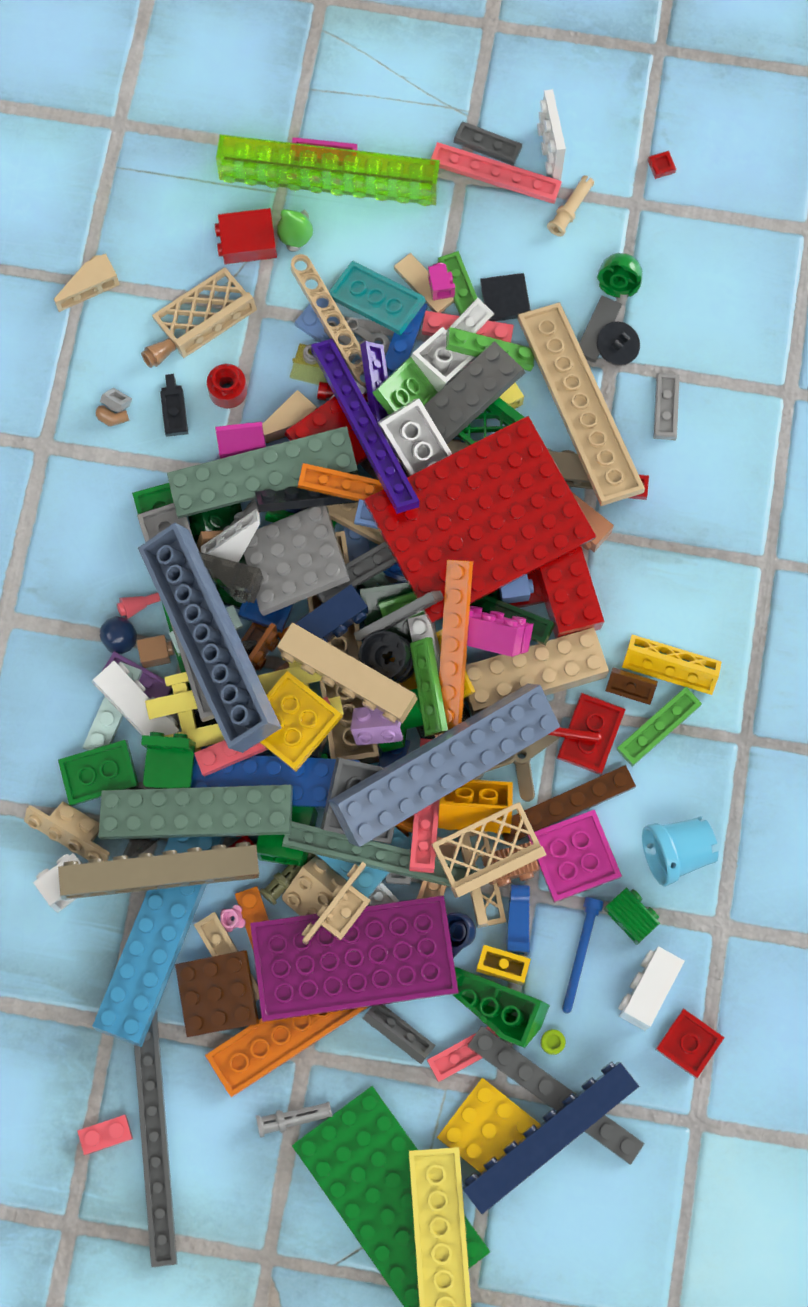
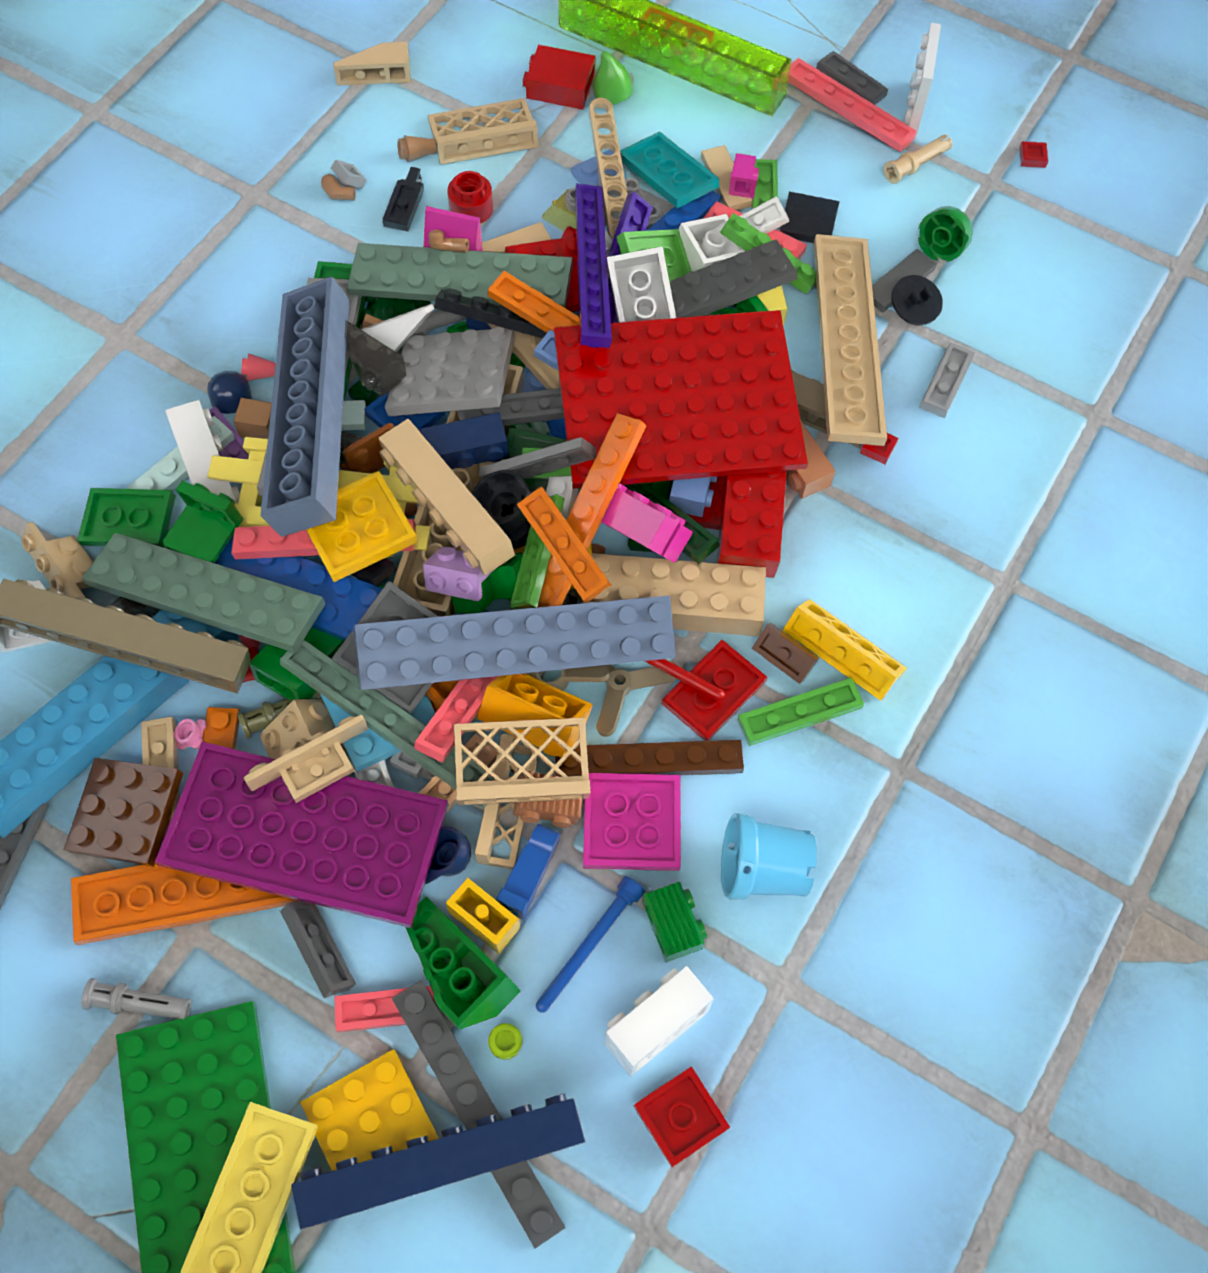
camera: 20 degrees right, 10 degrees down
(238, 451) = (438, 242): none -> medium nougat arm
(450, 677) = (564, 544): none -> orange plate

